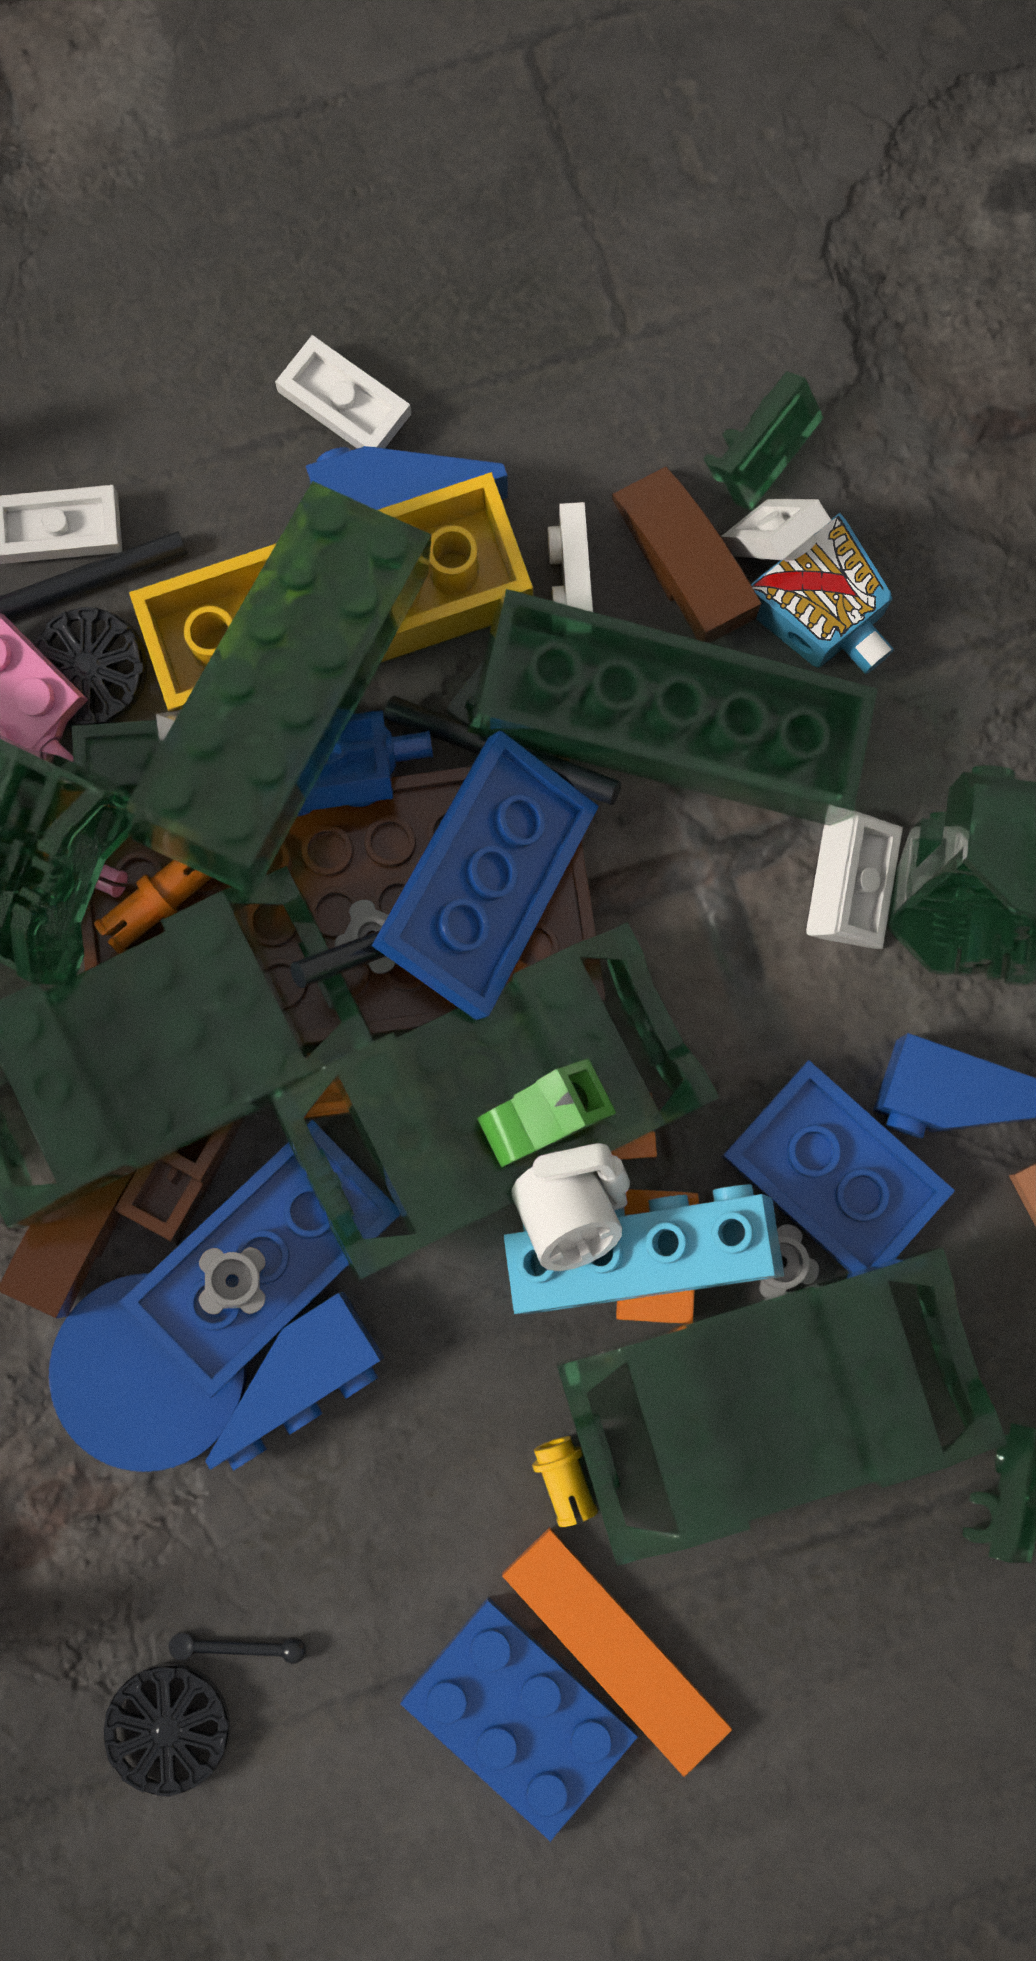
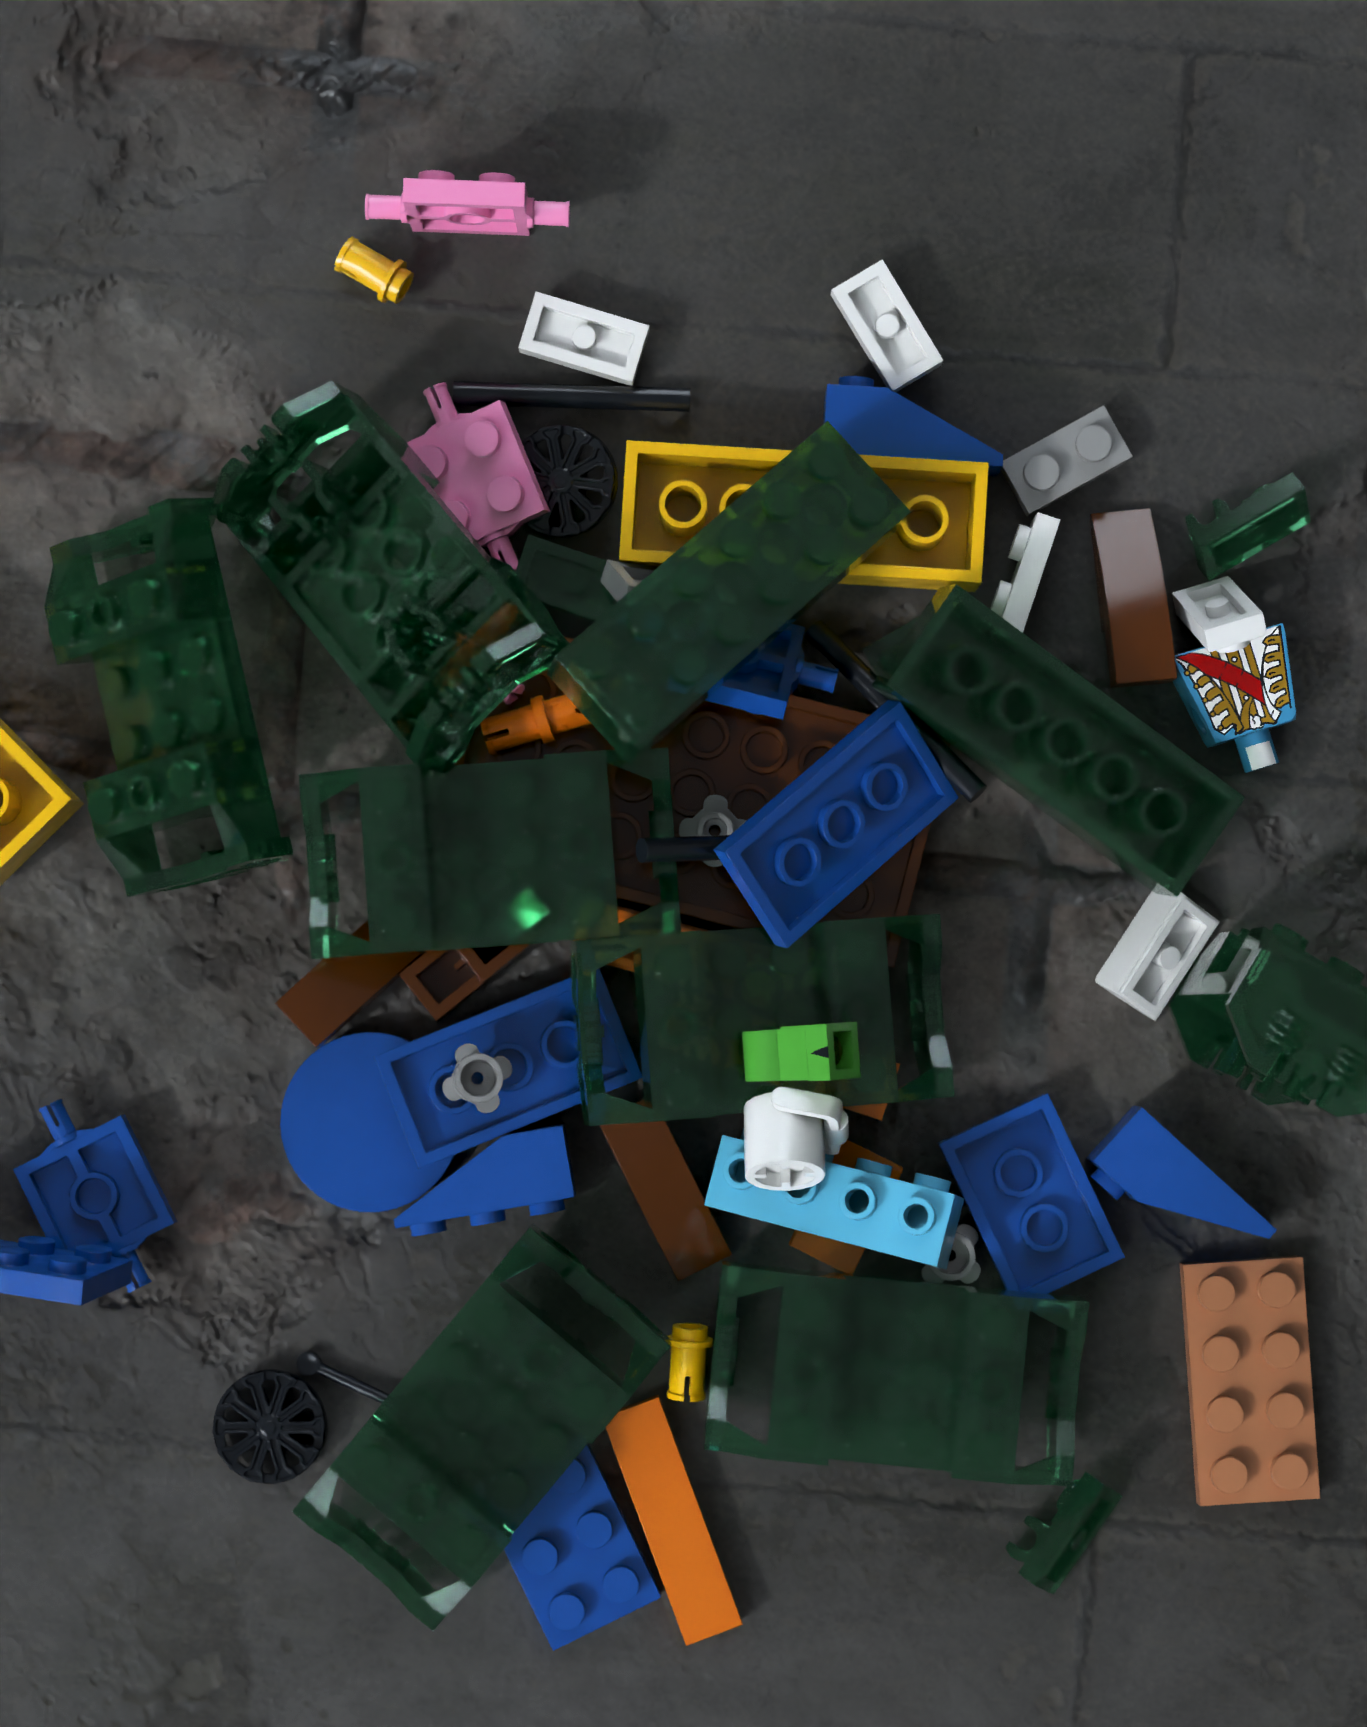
camera: 20 degrees right, 5 degrees up
(377, 1648) = (480, 1429): none -> clear green piece
(473, 1318) = (667, 1194): none -> reddish brown slope
(566, 454) = (1065, 461): none -> light grey plate

